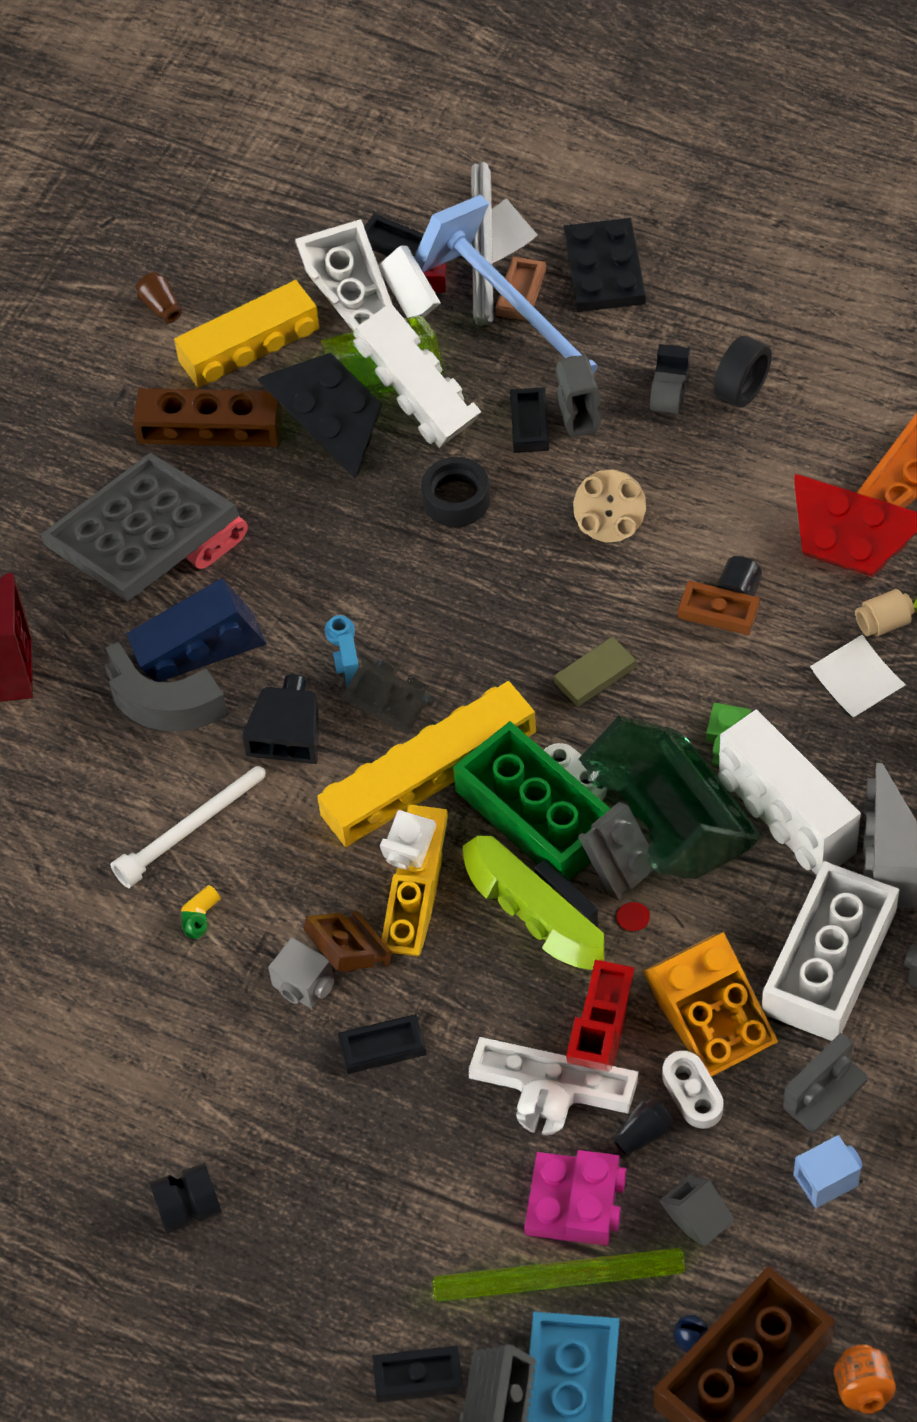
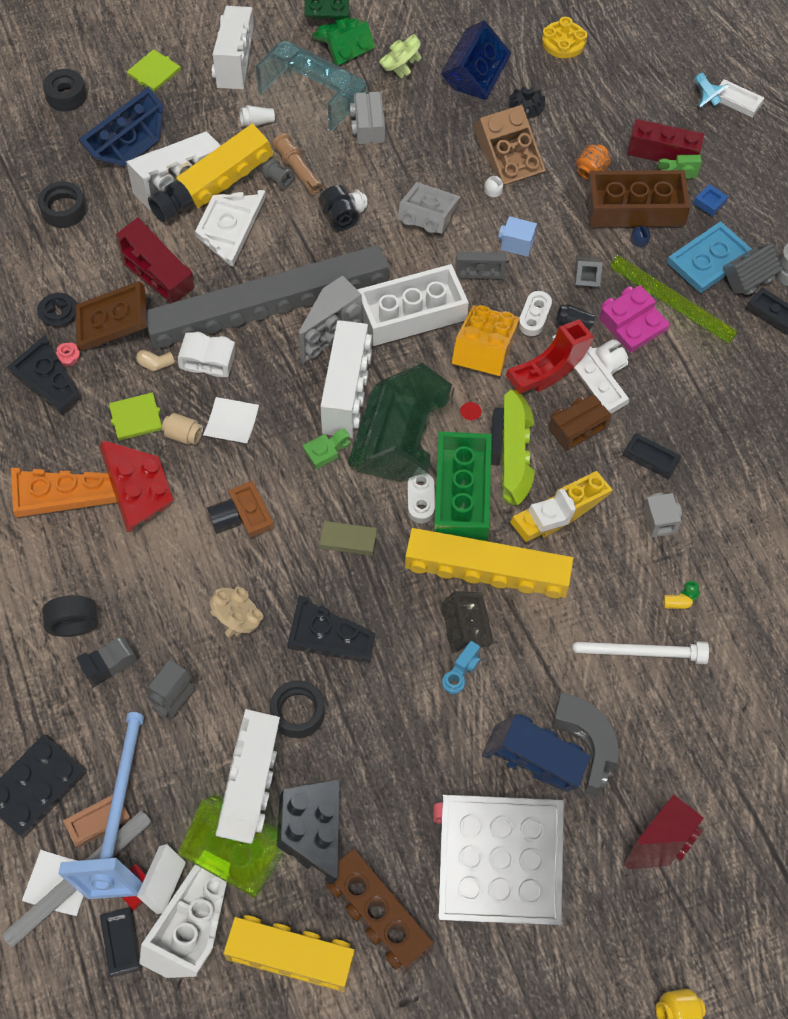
camera: 140 degrees left, 5 degrees up
(284, 723) = (538, 655): black torso -> none
(347, 941) = (627, 502): reddish brown plate -> none
(497, 997) = (579, 421): none -> reddish brown brick
(505, 572) = (326, 634): none -> black wing
(529, 420) = (202, 721): black tile -> none
(617, 850) = (447, 423): flat silver plate -> none

